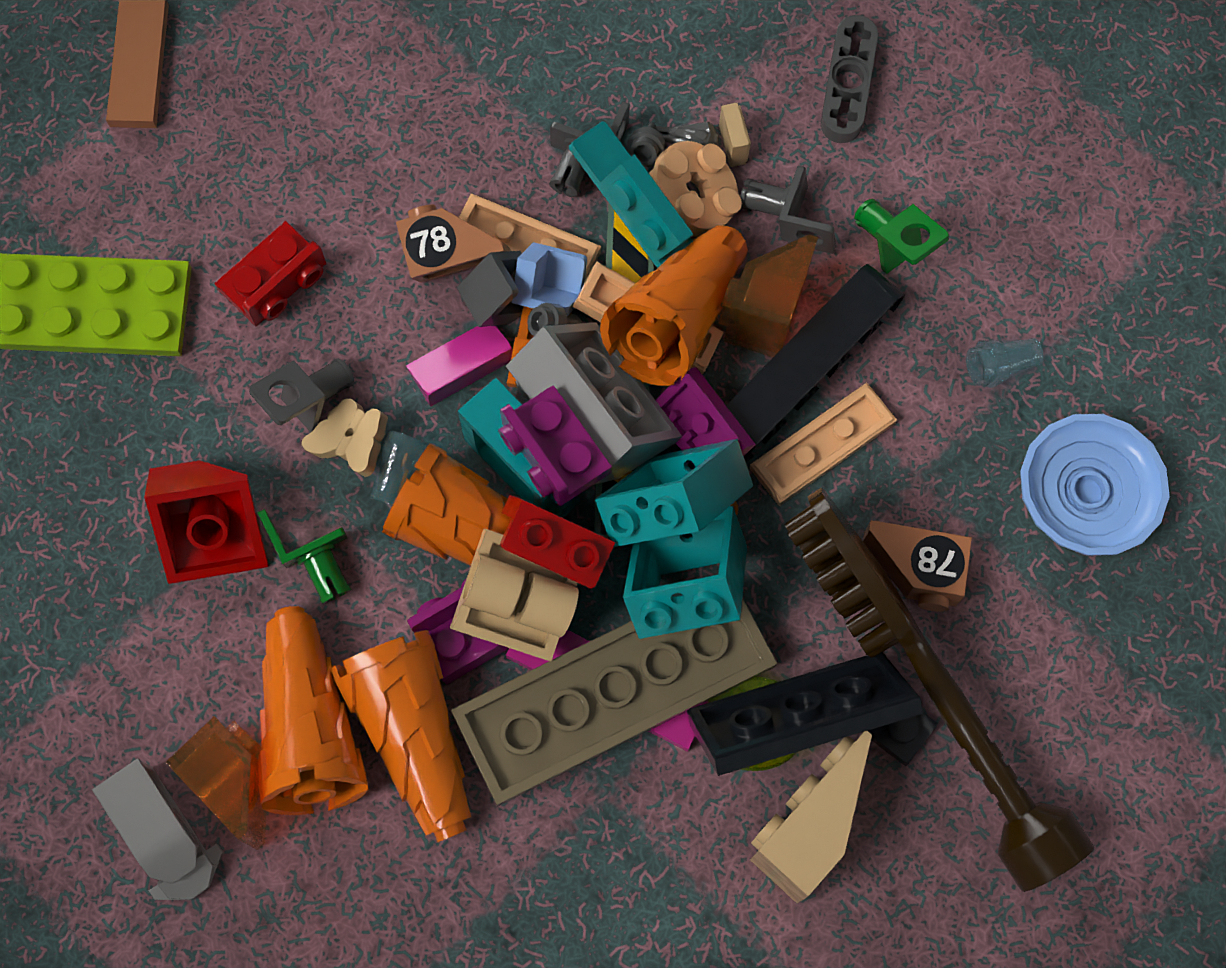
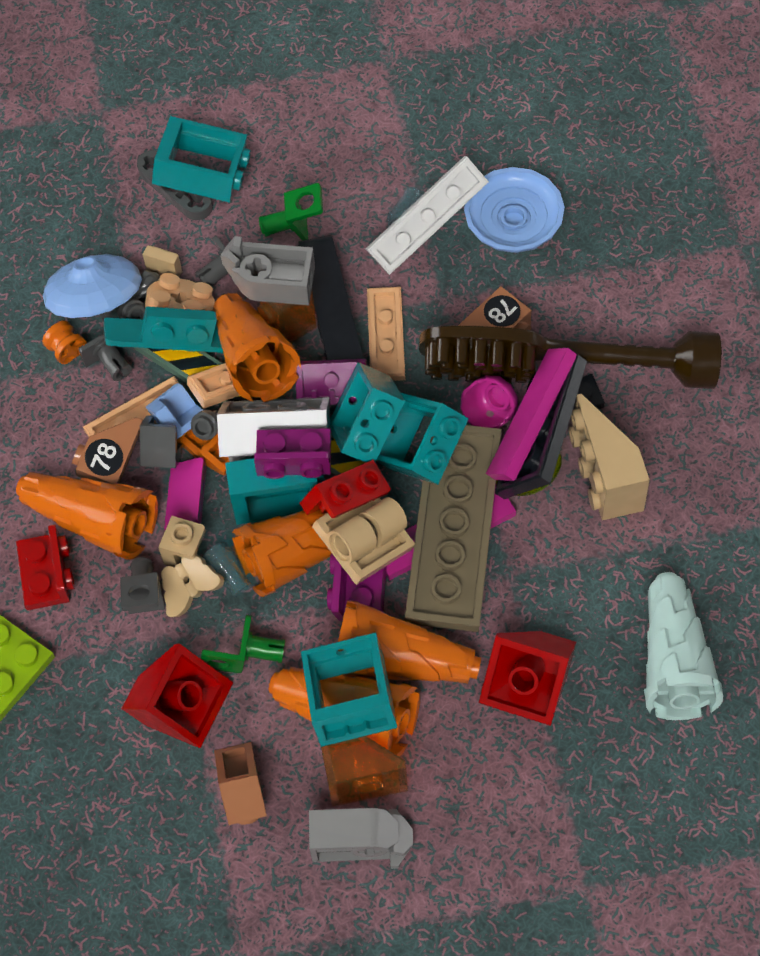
camera: 50 degrees left, 10 degrees down
(142, 655) = (240, 784): none -> nougat slope
(250, 746) = (353, 717): none -> teal window
(368, 288) = (96, 510): none -> orange cone
(389, 393) = (180, 540): none -> tan bracket
(482, 900) = (527, 674): none -> red slope
(559, 100) = (63, 341): none -> orange wheel
(646, 81) = (91, 286): none -> light blue hat
(786, 277) = (270, 271): none -> light grey piece
(806, 690) = (531, 414): none -> dark pink tile
(809, 610) = (490, 394): none -> dark pink hair
(925, 65) = (206, 141): none -> teal window
(1009, 387) = (427, 215): none -> white tile

